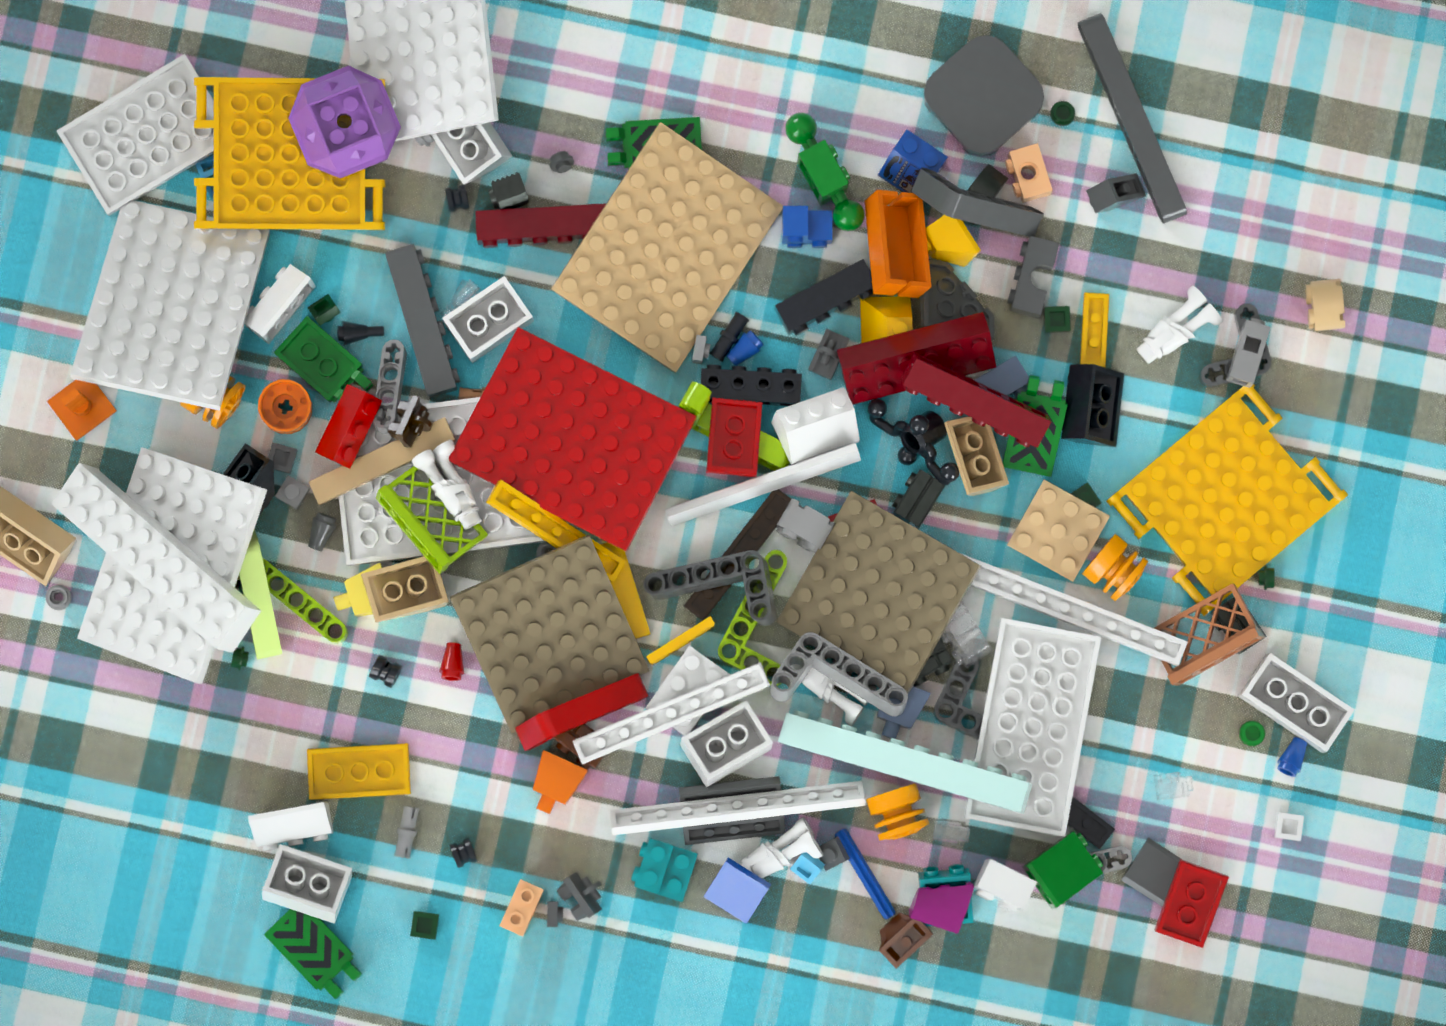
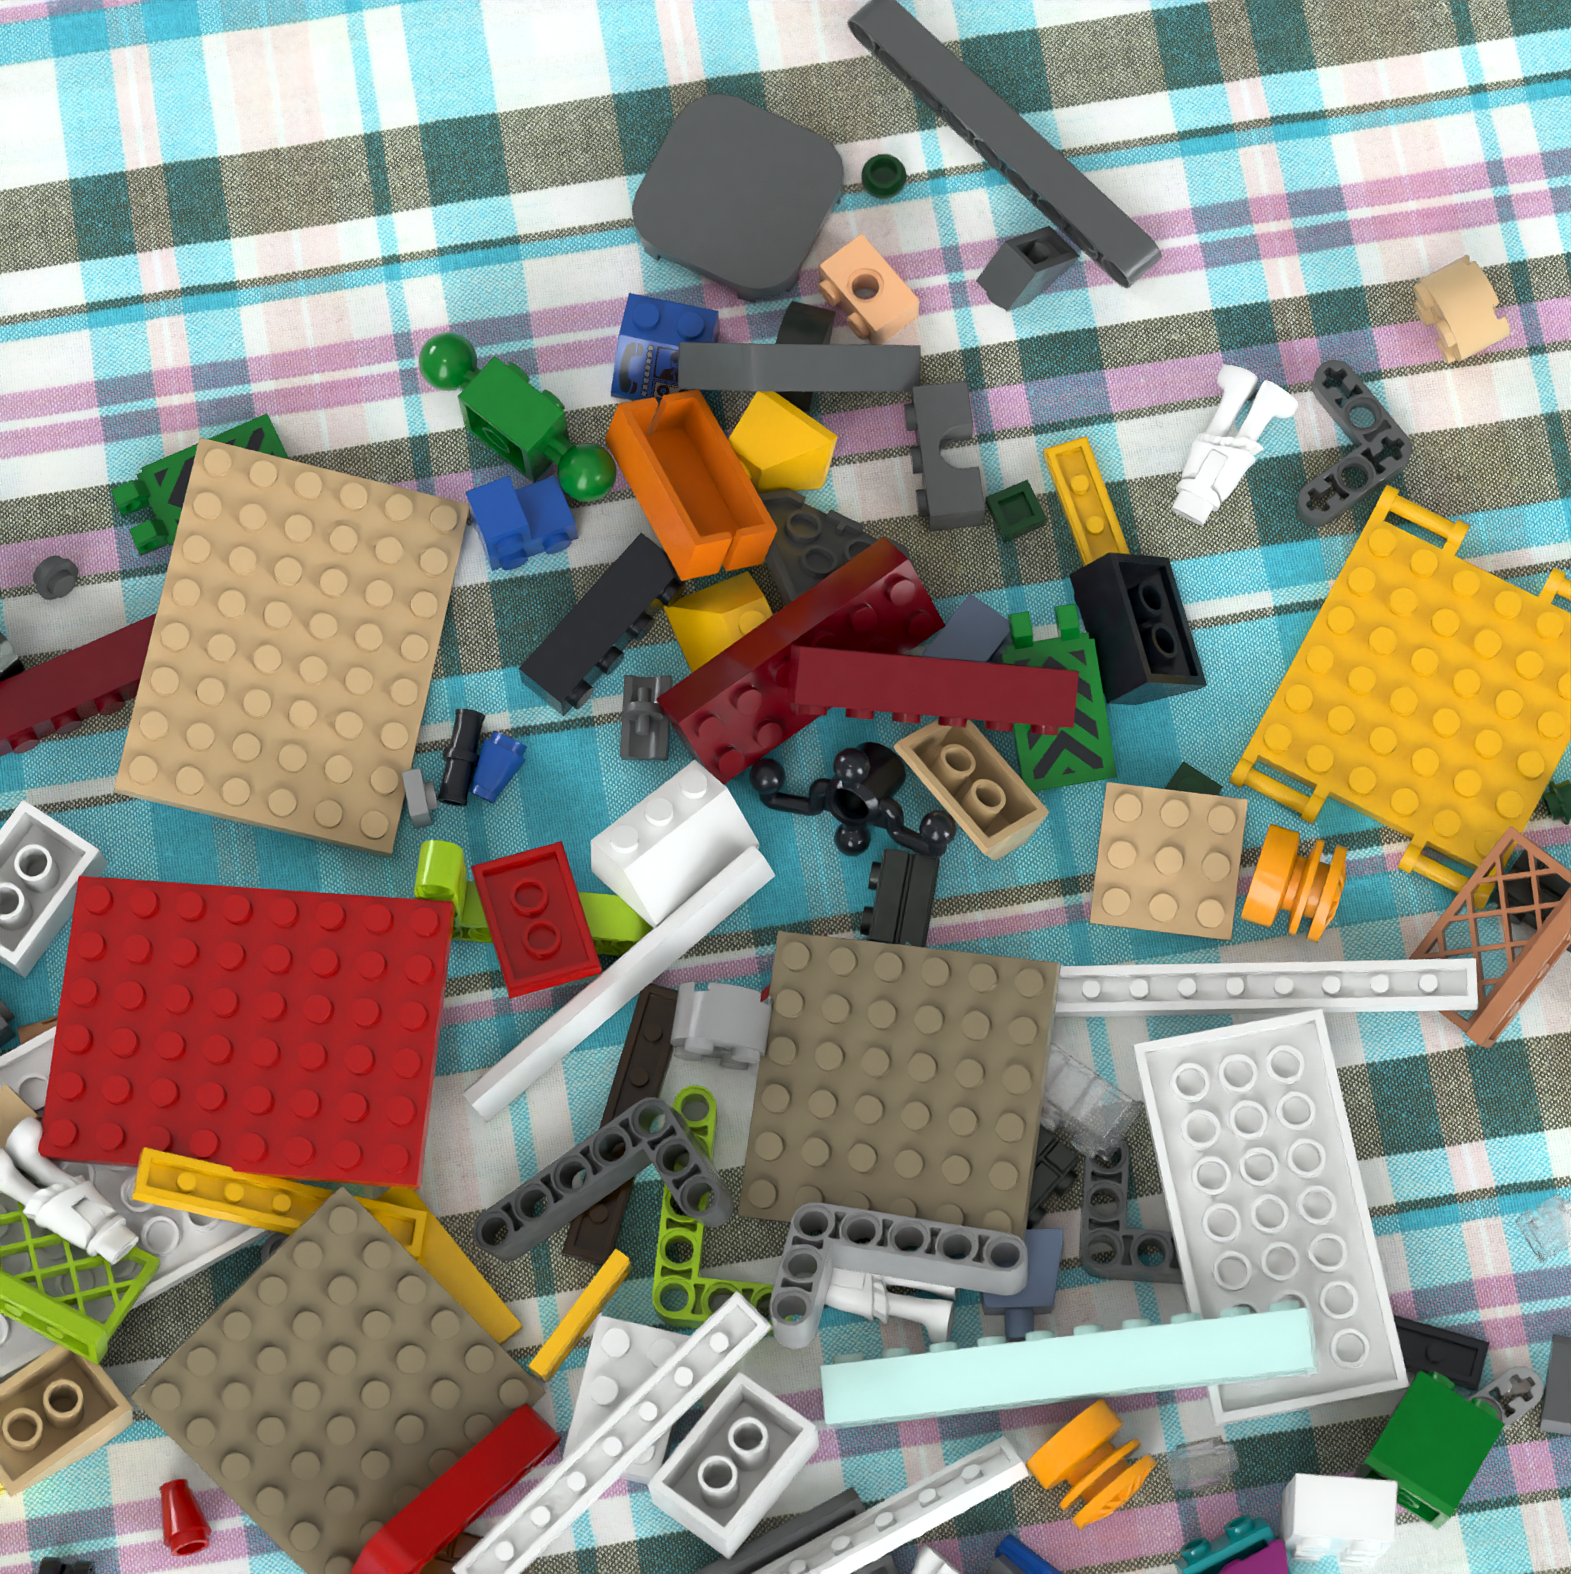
camera: 15 degrees left, 10 degrees down
(757, 386) = (547, 815): black brick -> none
(1248, 352) = (1365, 436): light grey brick -> none

